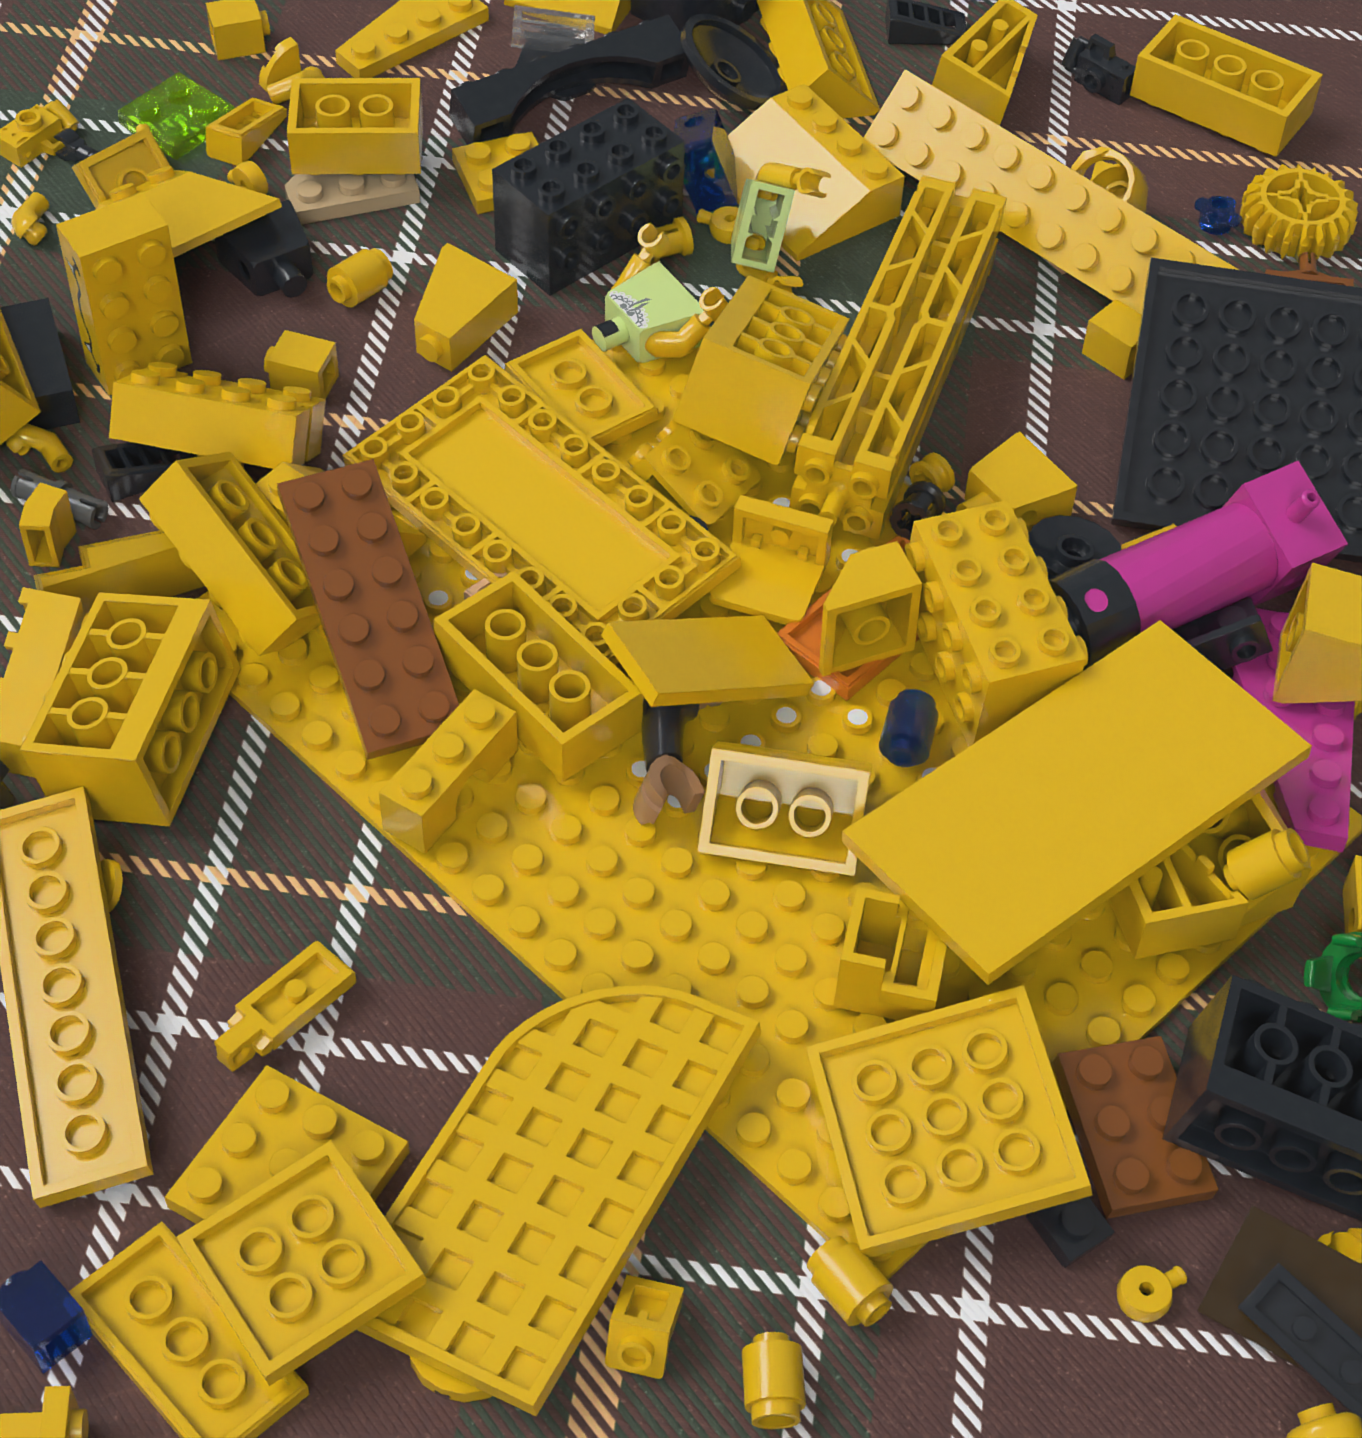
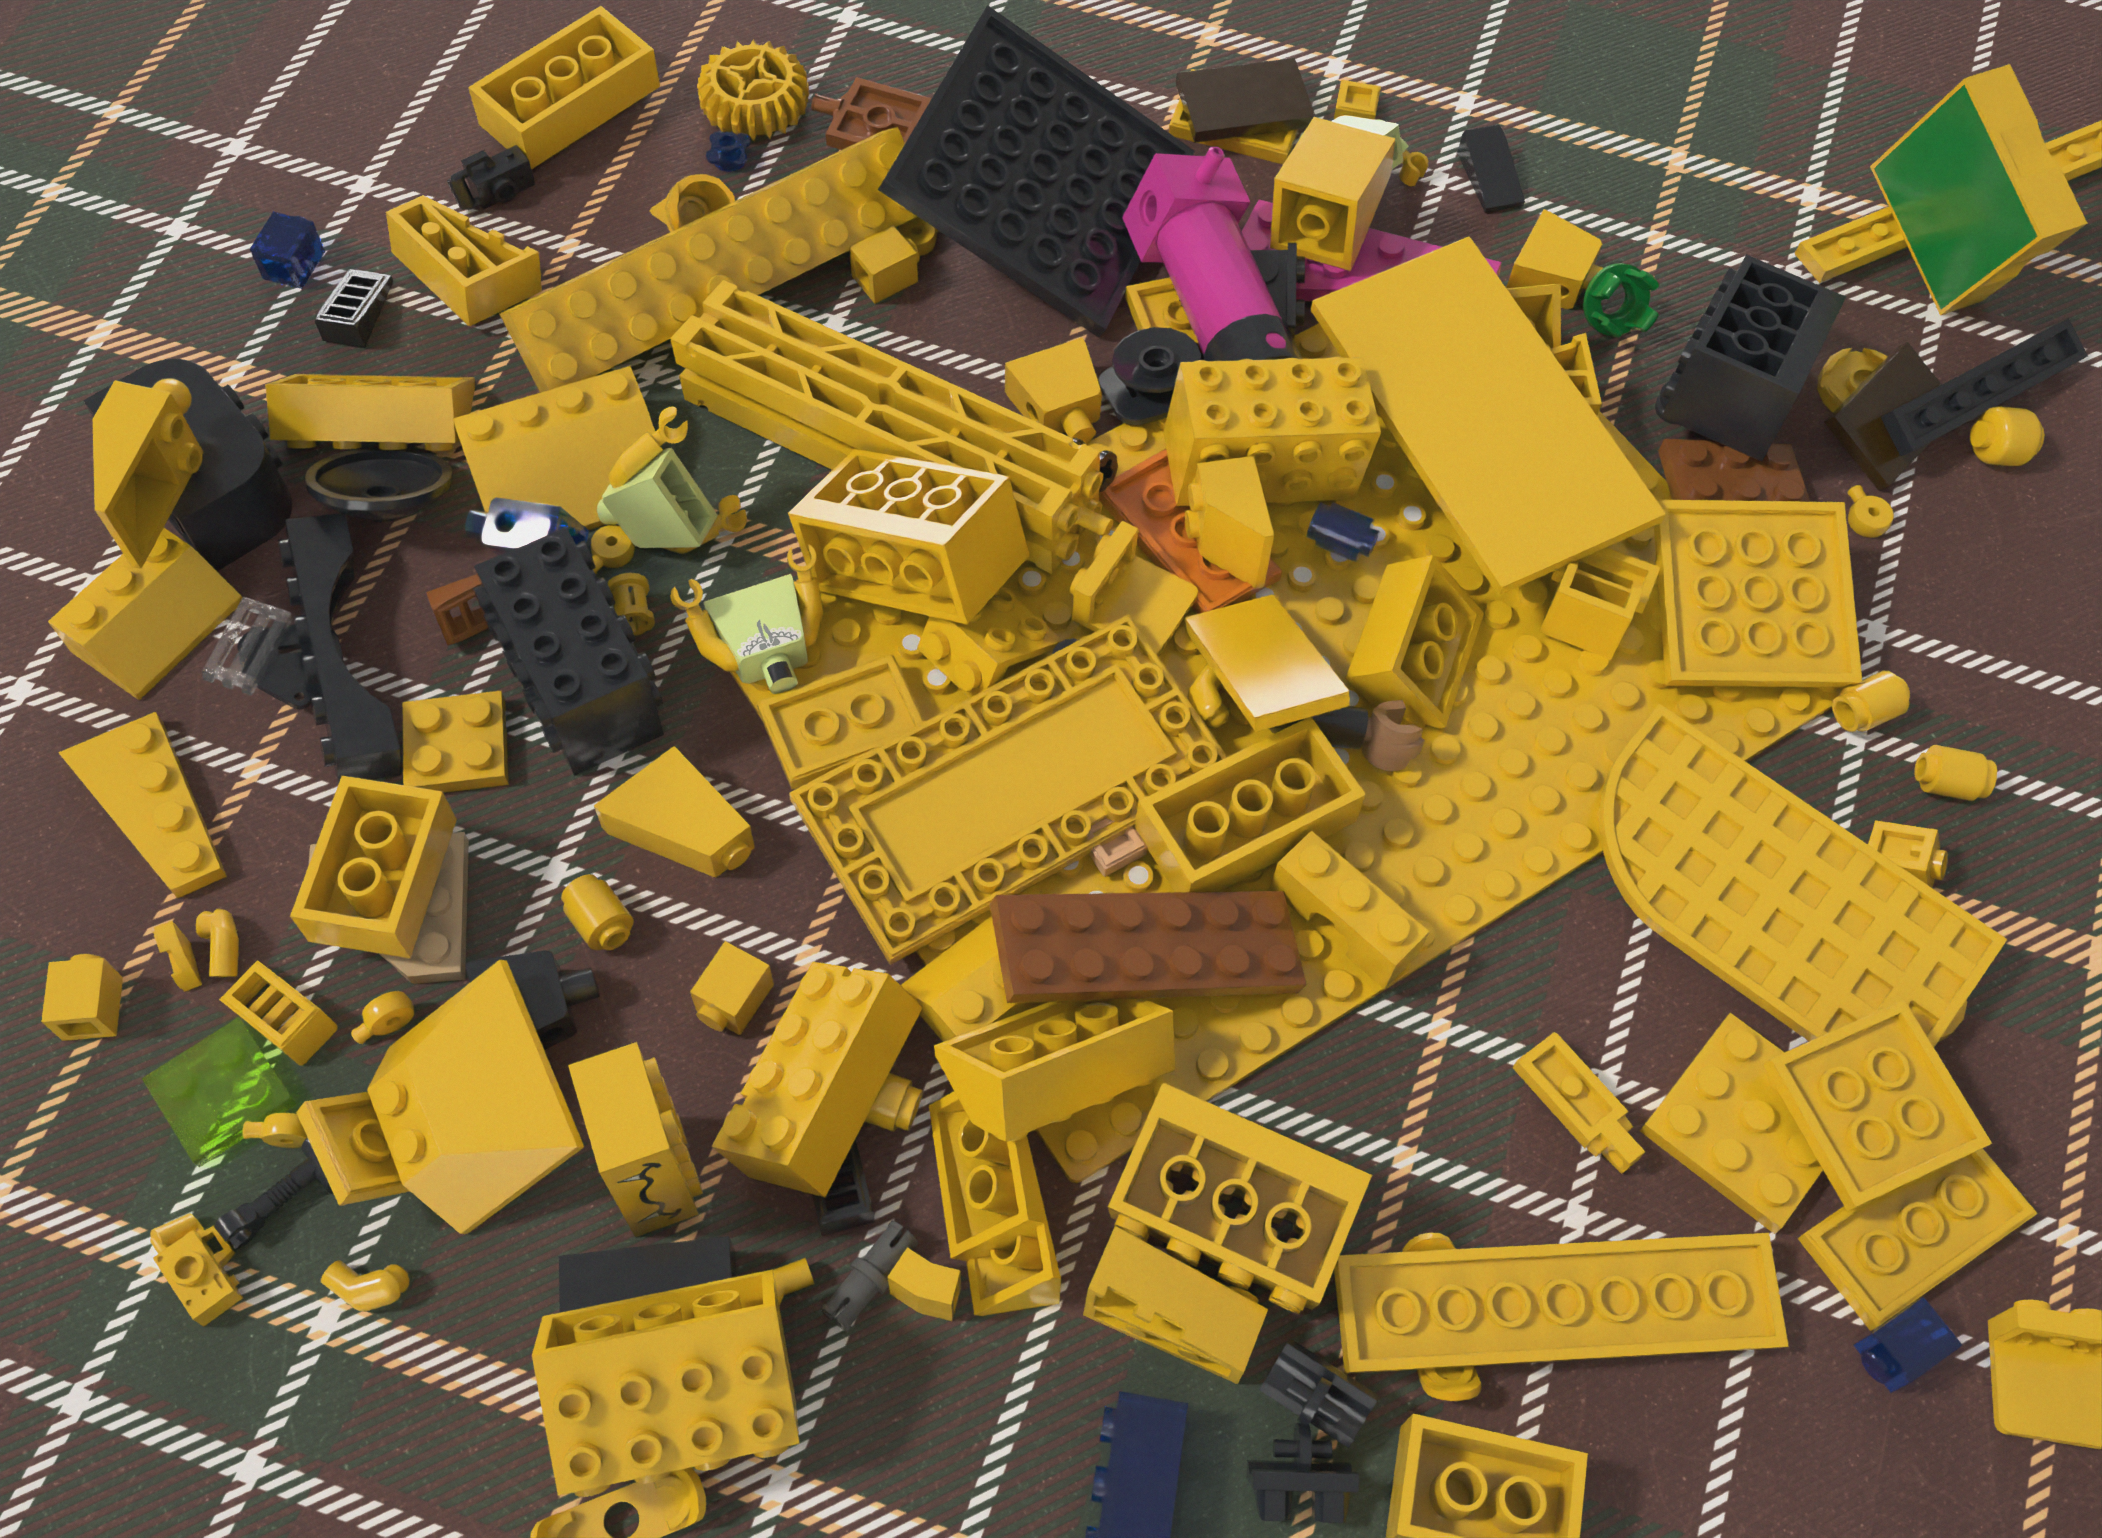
camera: 80 degrees left, 10 degrees up
(1266, 863) = (1556, 308): yellow brick -> none

